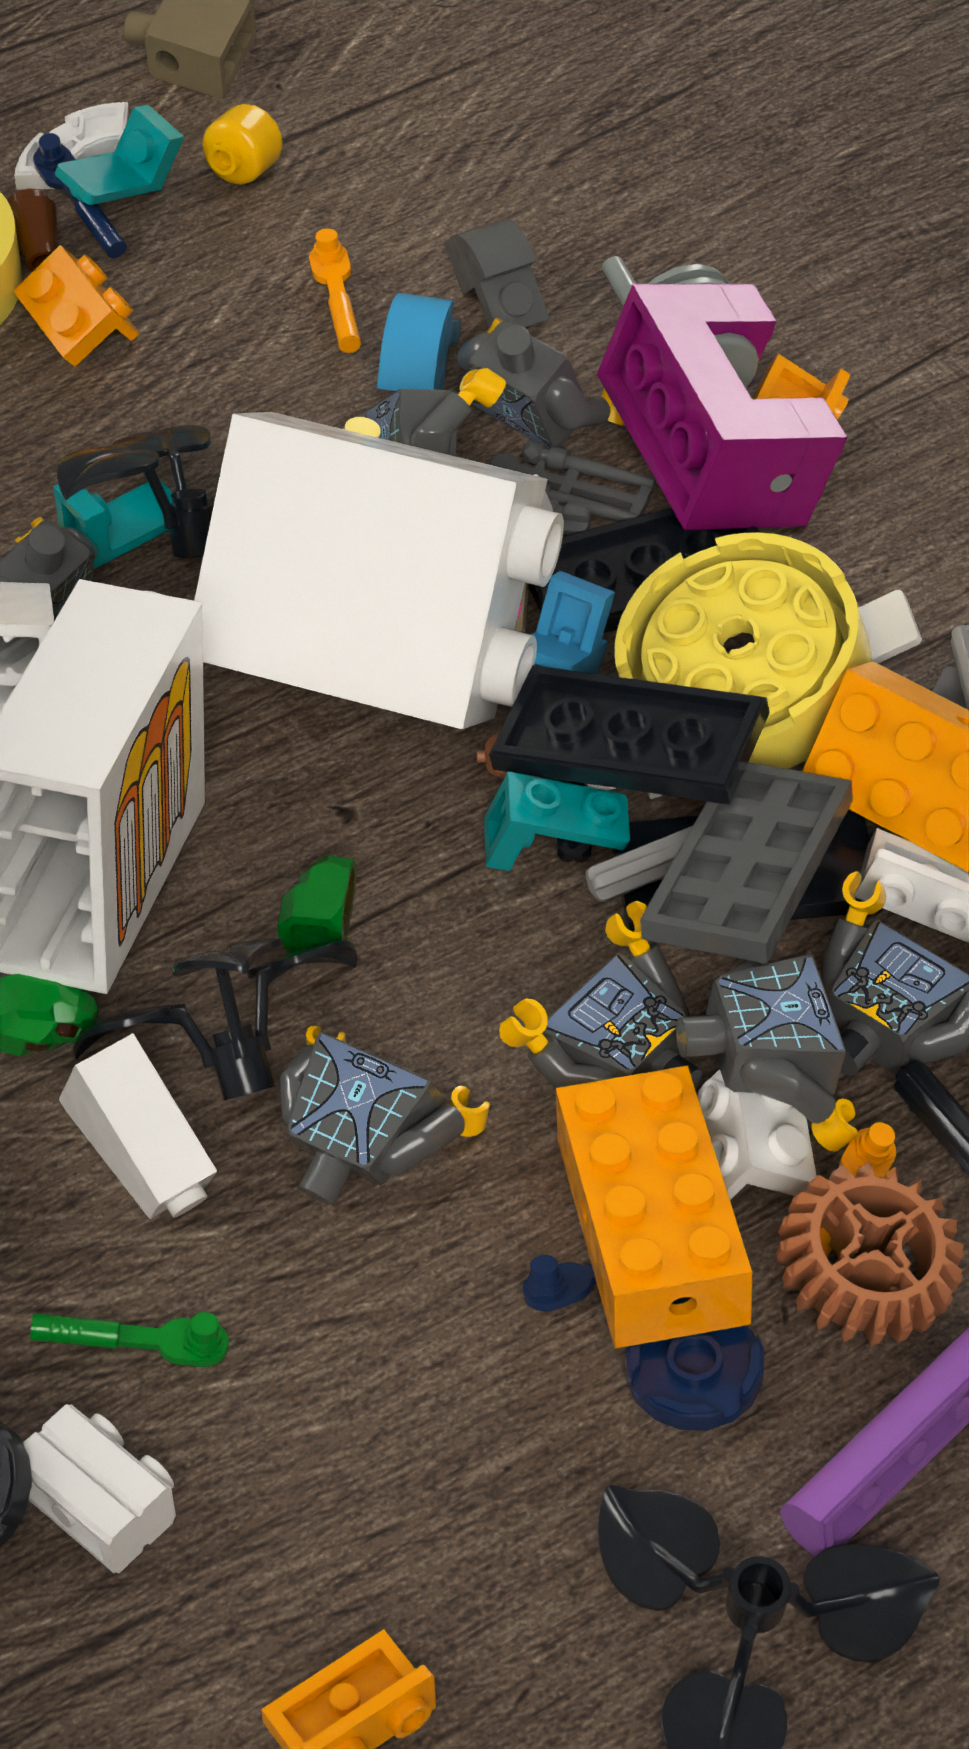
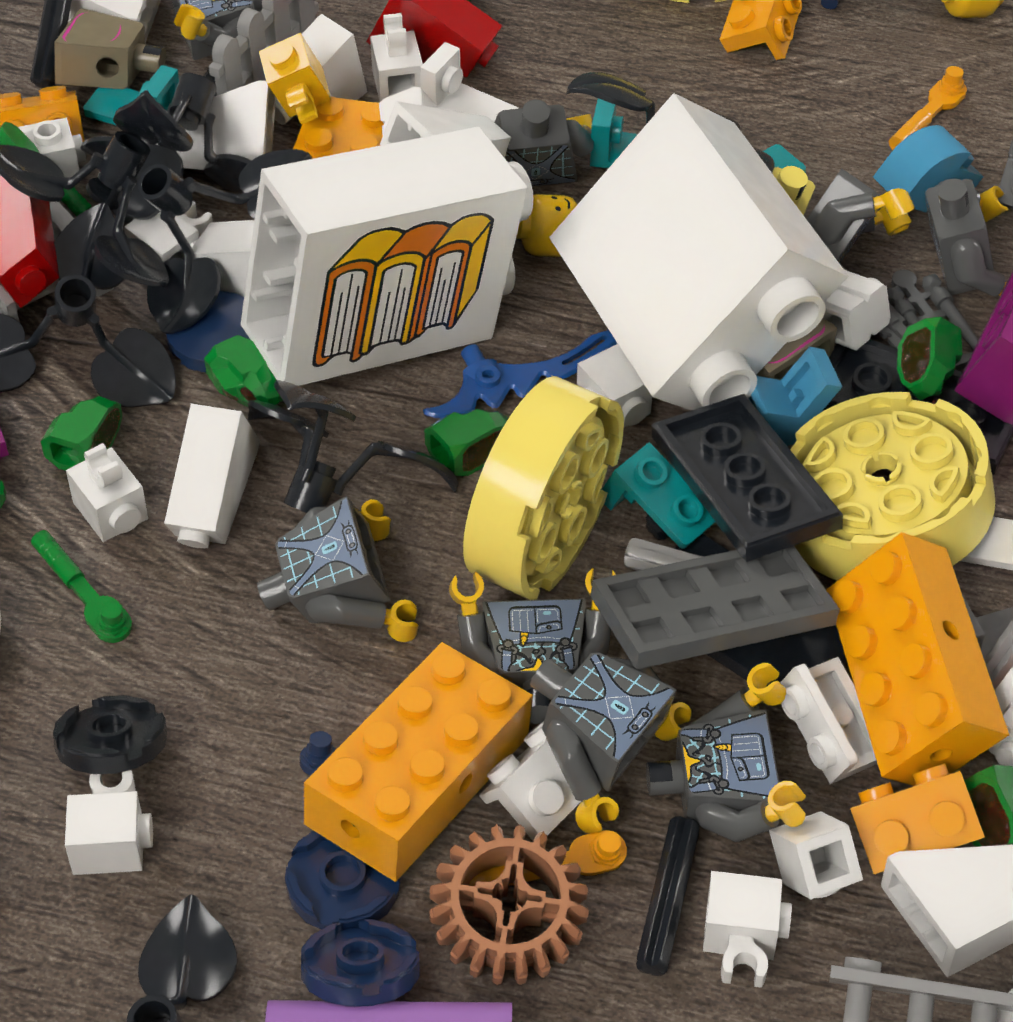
camera: 45 degrees right, 0 degrees up
(54, 1230) = (107, 493): none -> white brick
(265, 835) = (493, 380): none -> blue piece
(351, 1429) = (110, 736): none -> black tile
(392, 761) = (615, 378): none -> white brick
(452, 1507) = (107, 828): none -> white brick
(500, 875) = (542, 487): none -> light yellow brick
(635, 515) = (928, 356): none -> green rock
(813, 1409) = (360, 963): none -> dark blue tile

